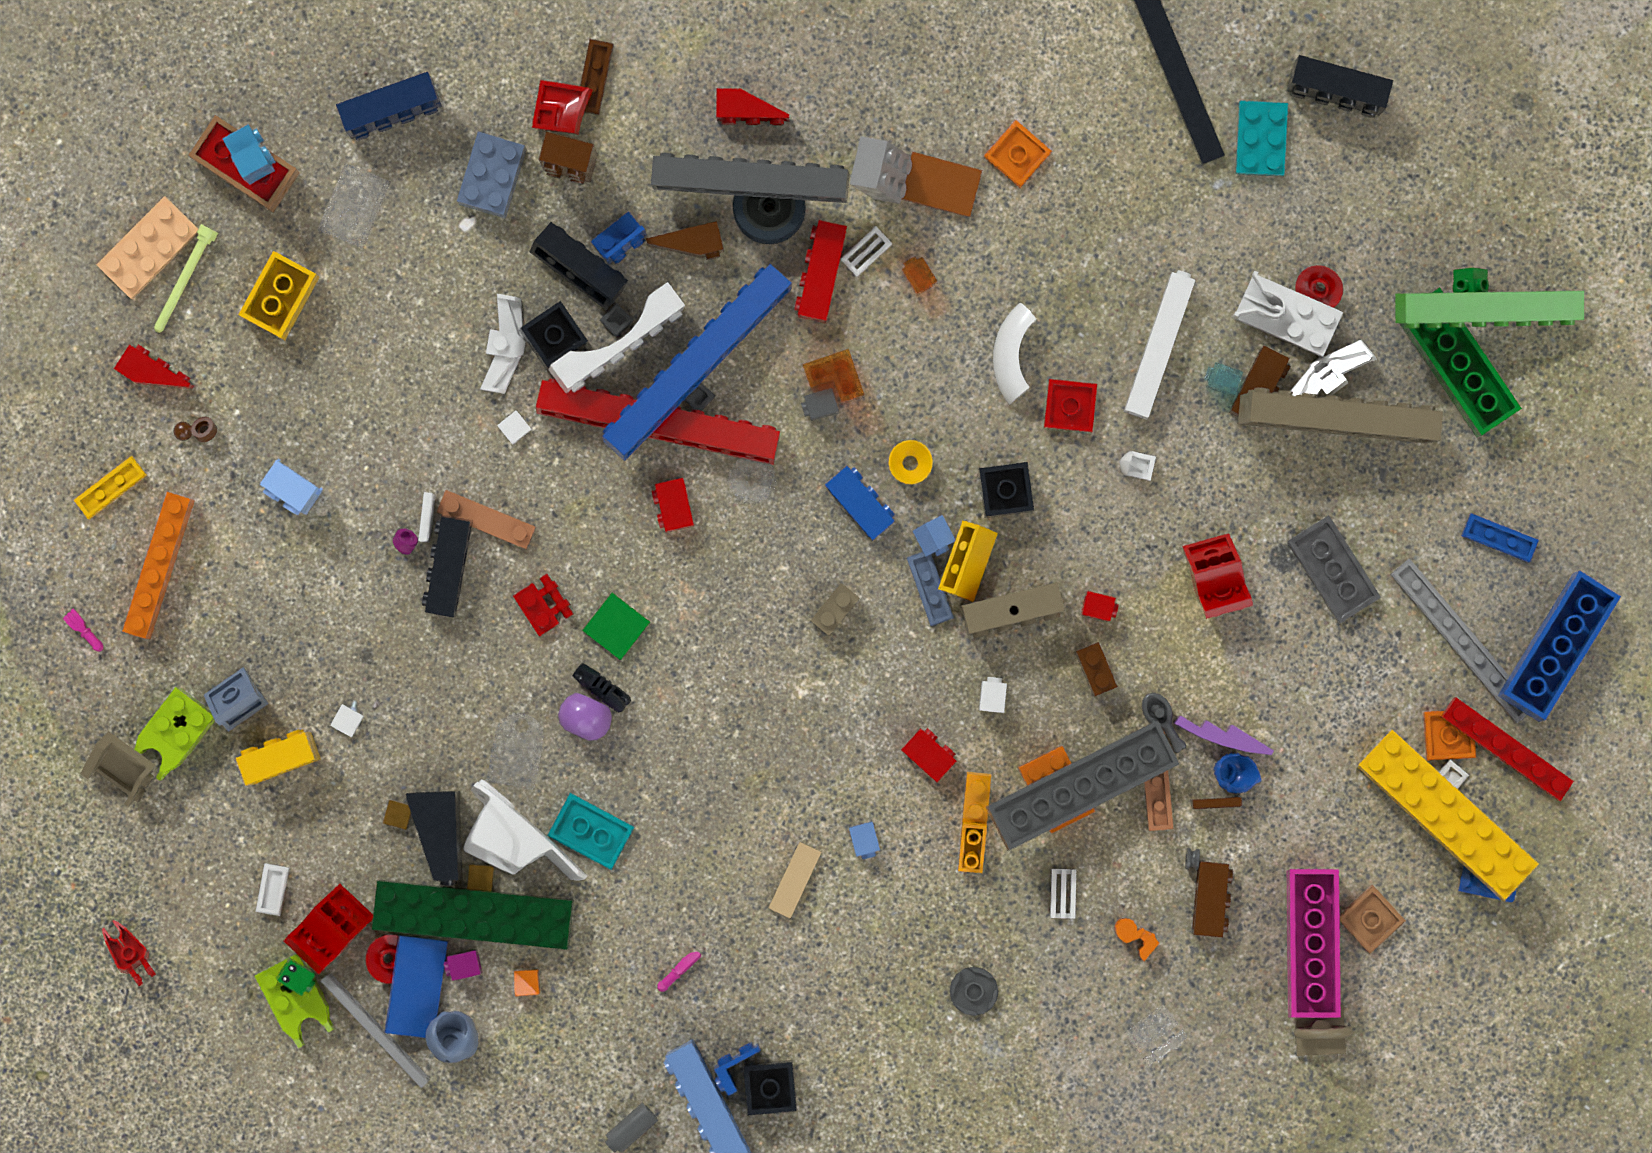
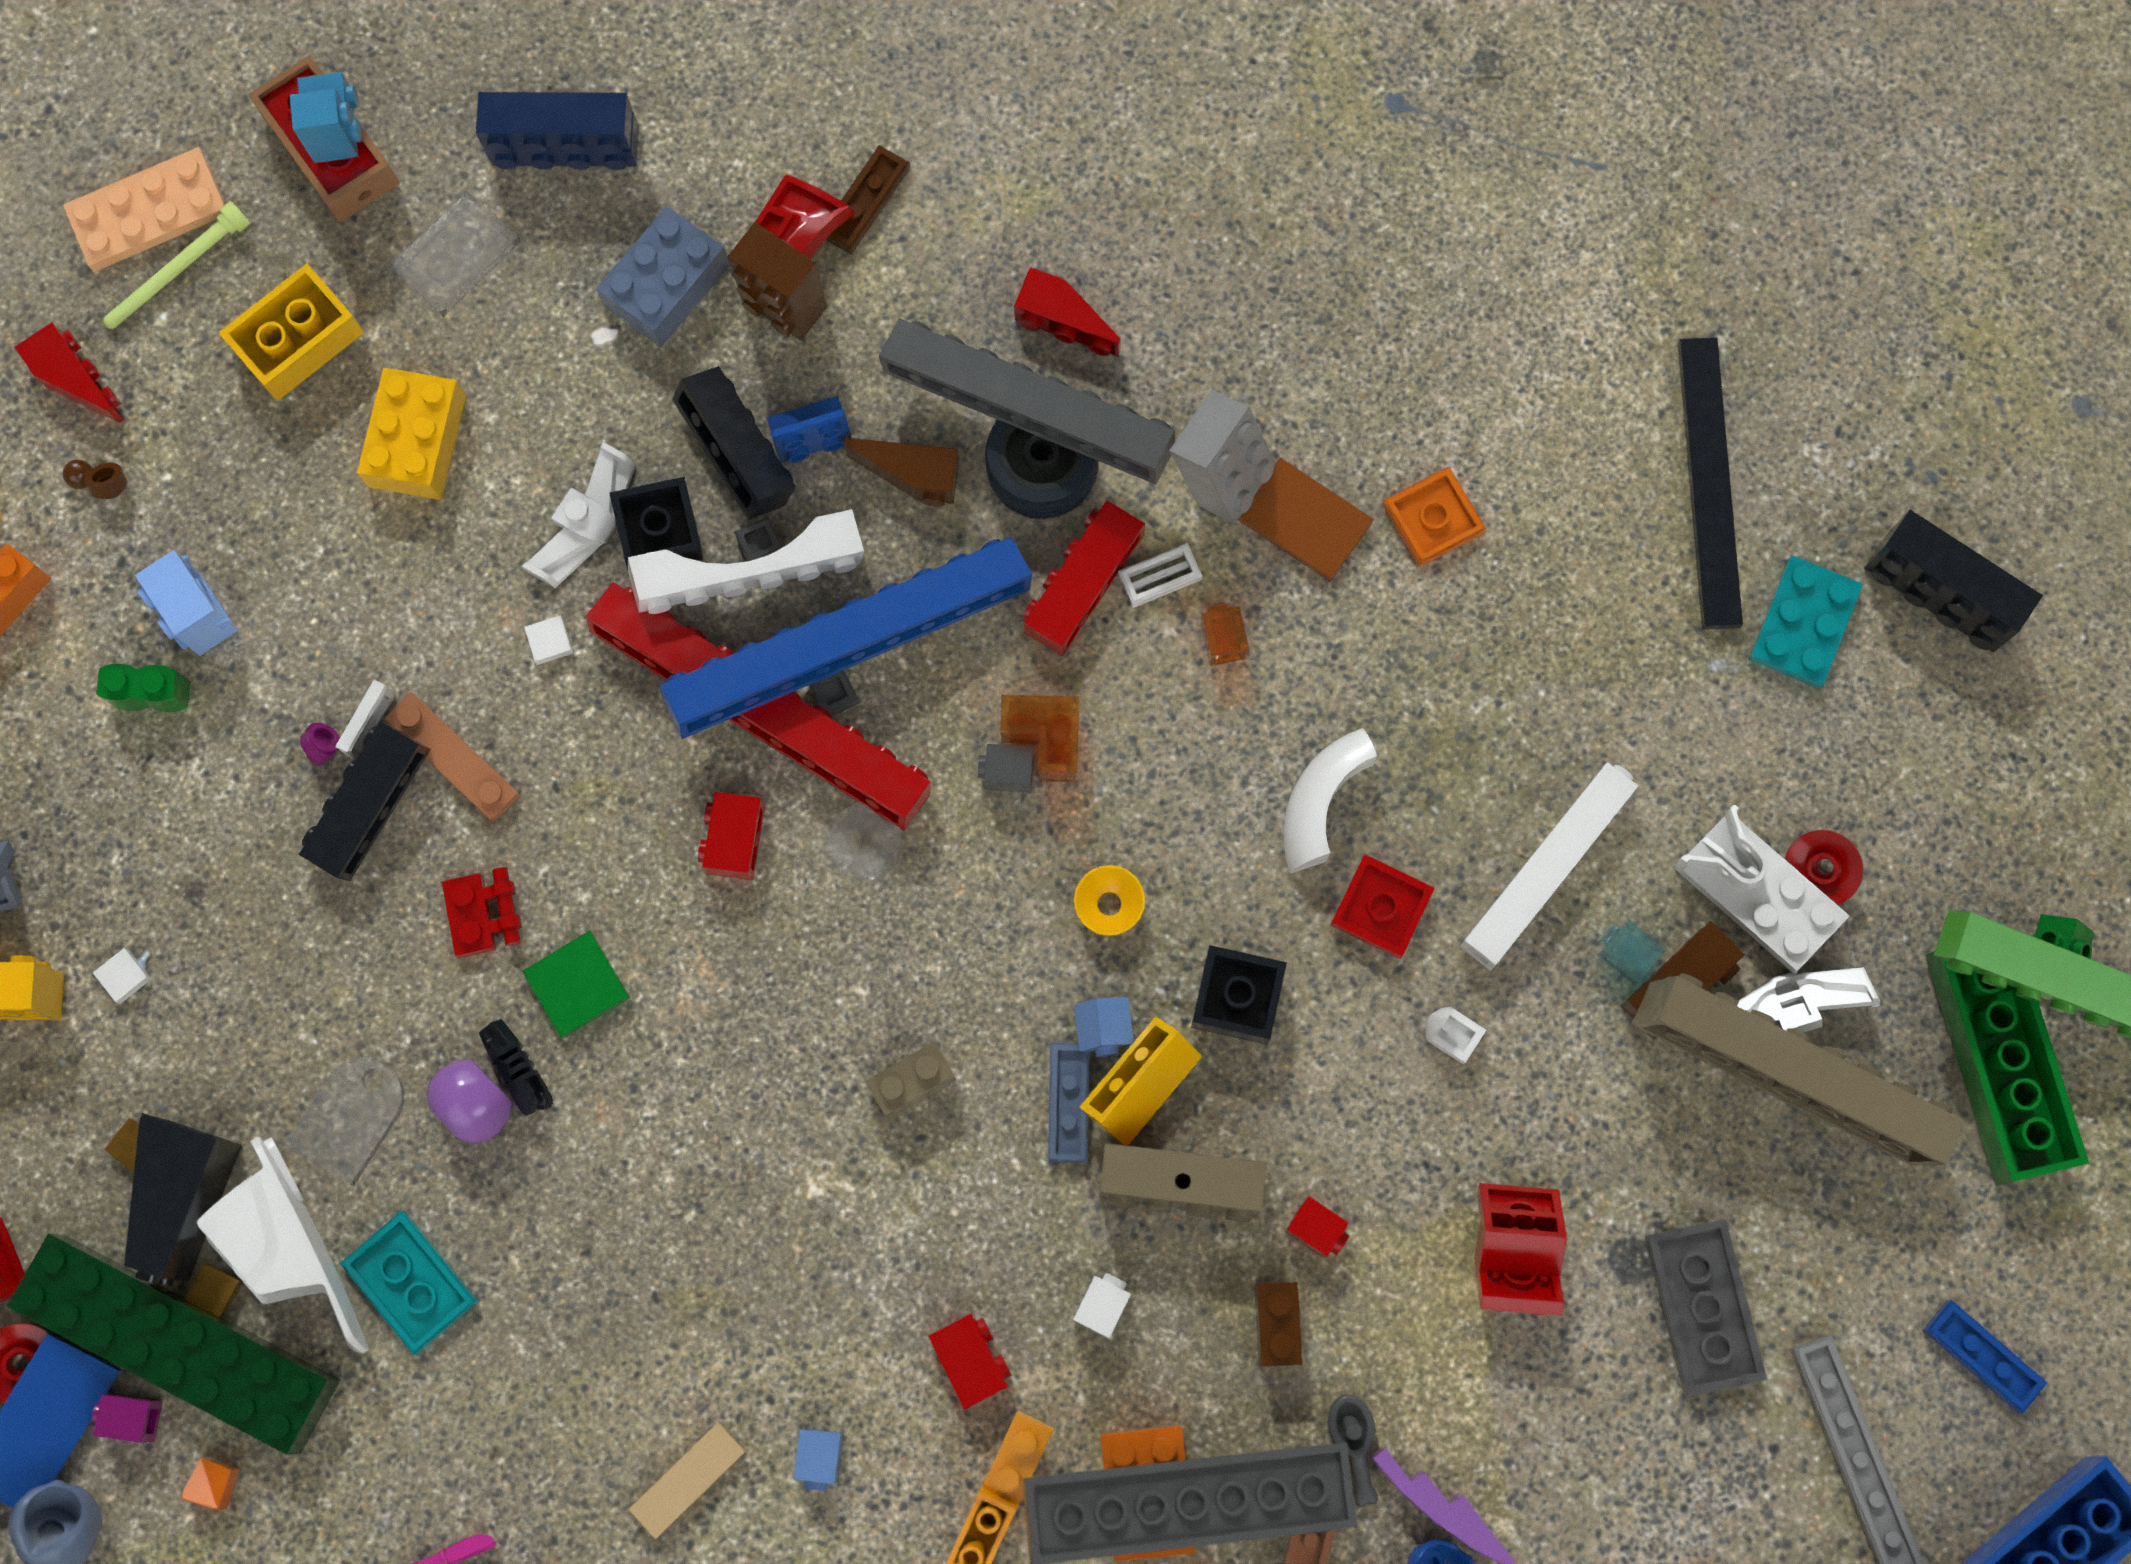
camera: 25 degrees right, 10 degrees down
(278, 550) = (143, 687): none -> green brick
(379, 331) = (411, 433): none -> yellow brick
(860, 502) = (1012, 934): blue brick -> none

